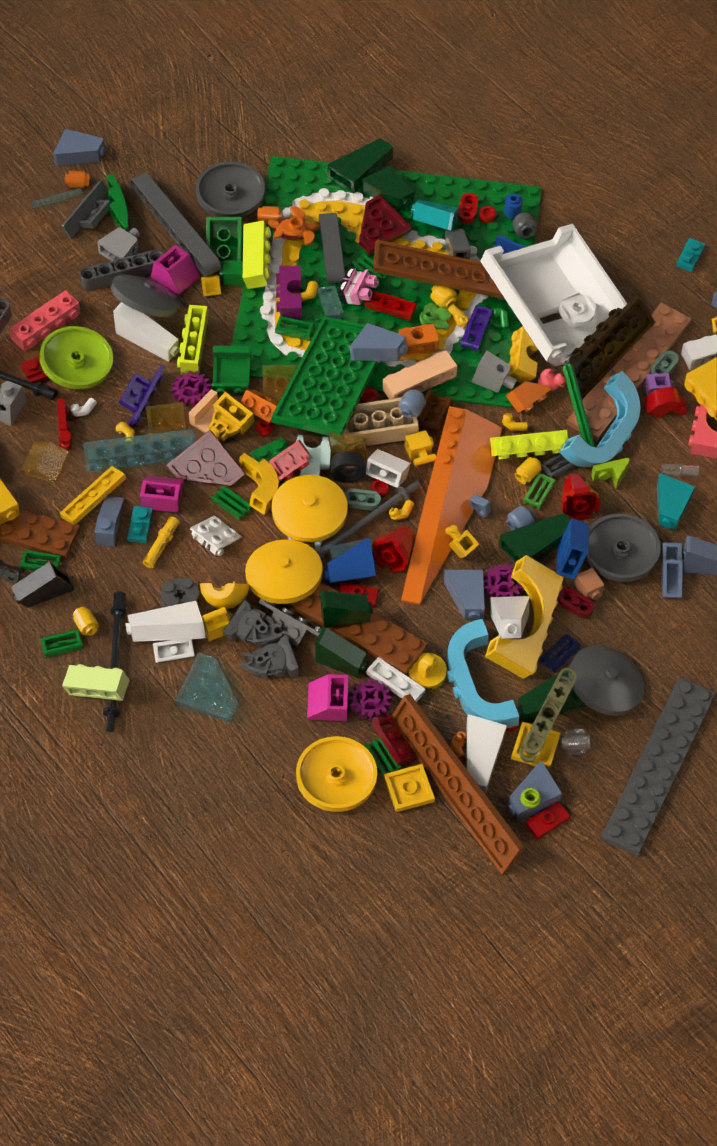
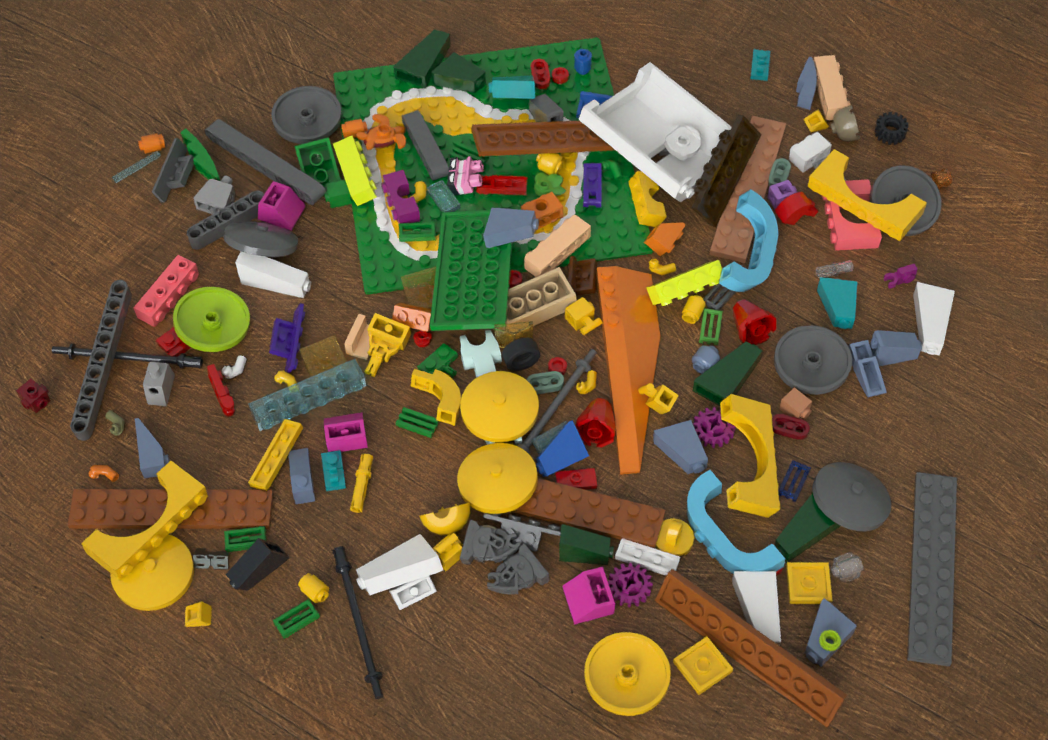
camera: 15 degrees left, 0 degrees up
(44, 460) = (213, 432): clear yellow slope -> none
(78, 148) = (142, 113): sand blue slope -> none
(96, 682) = (348, 650): yellowish green brick -> none
(177, 586) = (397, 522): dark grey plate -> none
(190, 388) = (337, 318): magenta gear -> none
(194, 339) = (323, 271): neon yellow brick -> none
(206, 462) = (379, 389): plate -> none
(207, 690) = (464, 624): clear light blue plate -> none
(211, 285) = (320, 212): yellow tile -> none
(214, 534) = (412, 459): white hinge -> none
(231, 369) = (370, 289): green panel -> none
(290, 459) = (464, 363): bracket -> none
(344, 608) = (573, 499): dark green slope -> none
(375, 744) = (651, 629): green tile -> none
(381, 223) = (463, 110): dark red plate -> none
(387, 468) = (559, 344): white brick -> none
(393, 739) = (668, 619): dark red plate -> none
(412, 403) = (564, 274): sand blue head -> none
(457, 744) = (732, 603): orange arm -> none
(460, 318) = (574, 180): yellow arm -> none
(481, 505) = (662, 356): sand blue tile -> none
(493, 373) = (626, 224): light grey torso -> none
(510, 615) = (736, 459): white slope -> none
(524, 225) = (600, 76): dark grey head -> none
(547, 820) = (850, 656): red plate -> none
(552, 379) = (680, 214): coral animal -> none
(553, 705) = (814, 566): olive piece -> none
(572, 548) = (770, 374): blue brick -> none
(578, 404) = (717, 230): green axle -> none
(614, 469) = (772, 286): lime slope -> none

